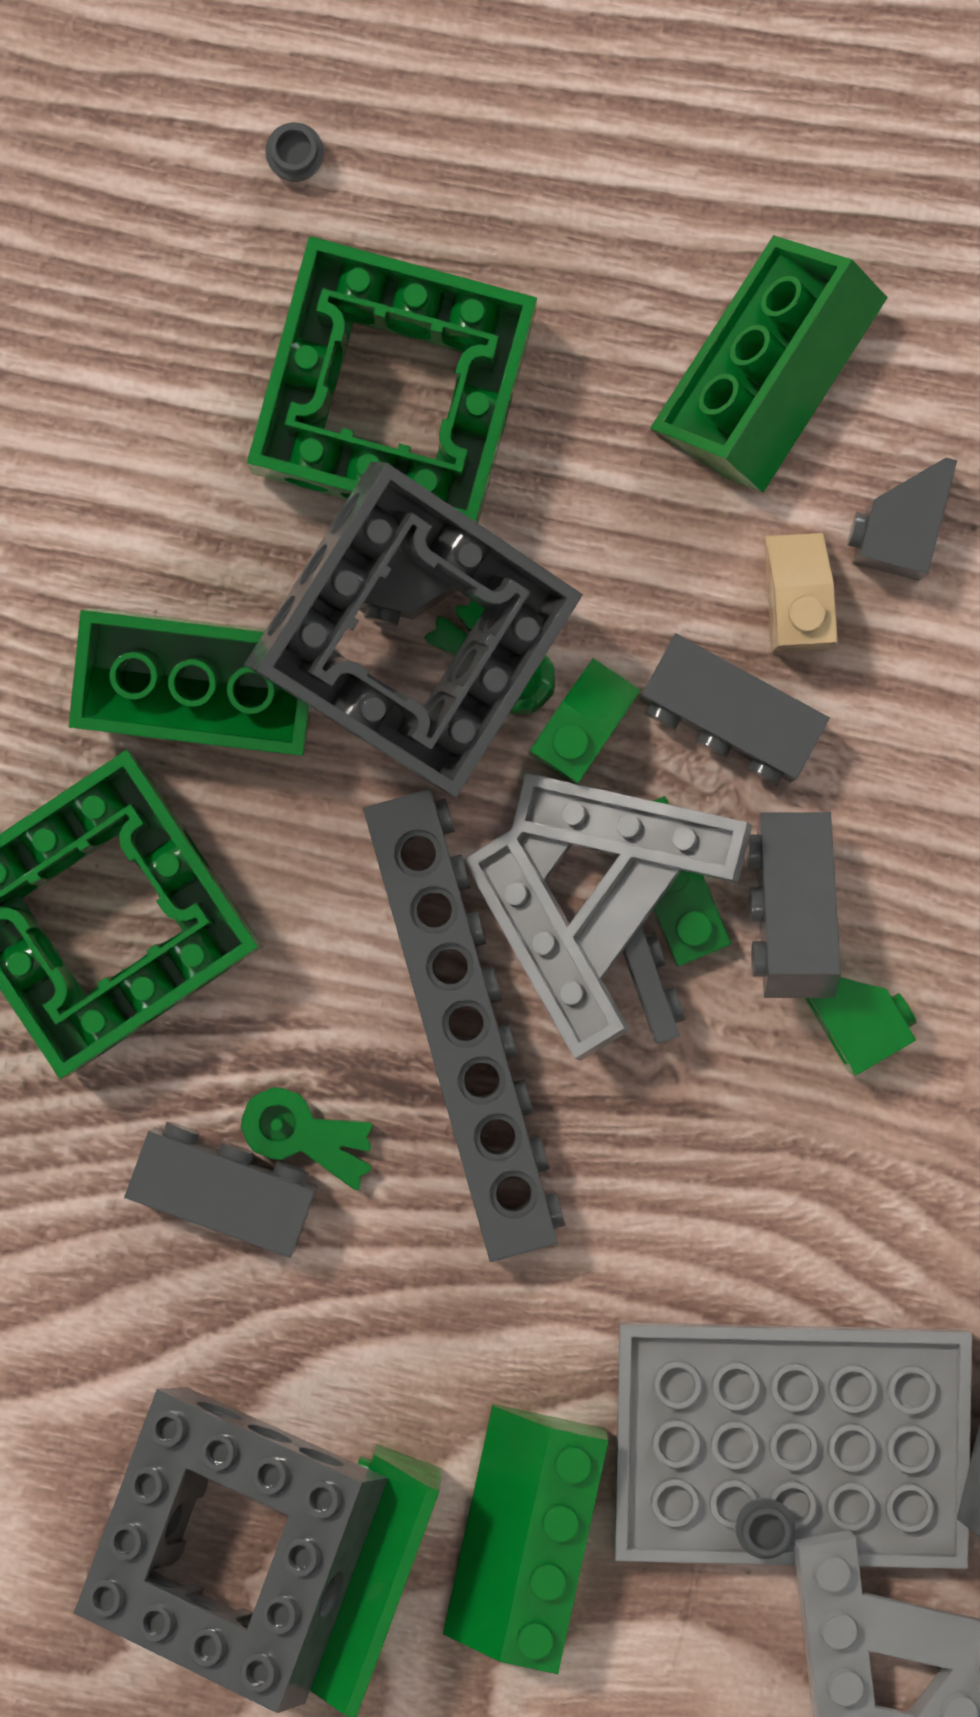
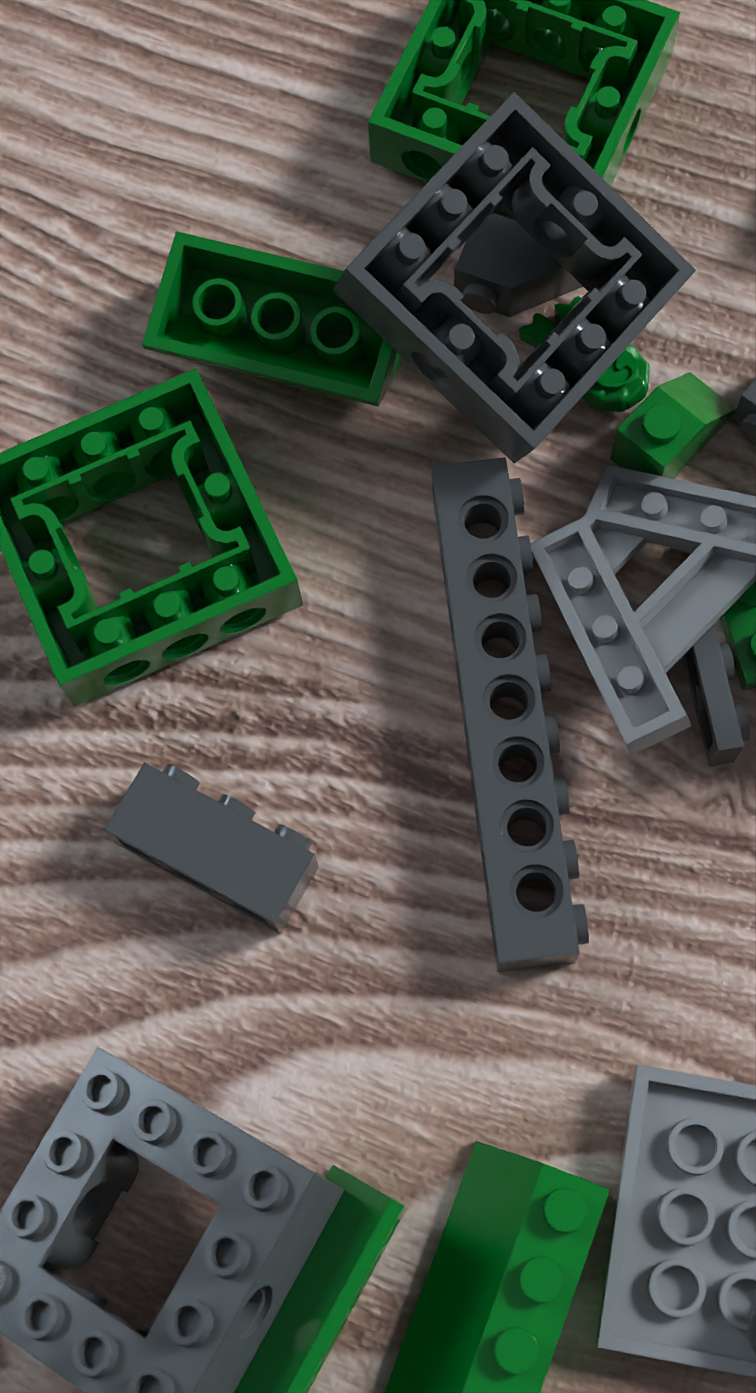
camera: 15 degrees right, 15 degrees down
(281, 1125) = (291, 789): green piece -> none

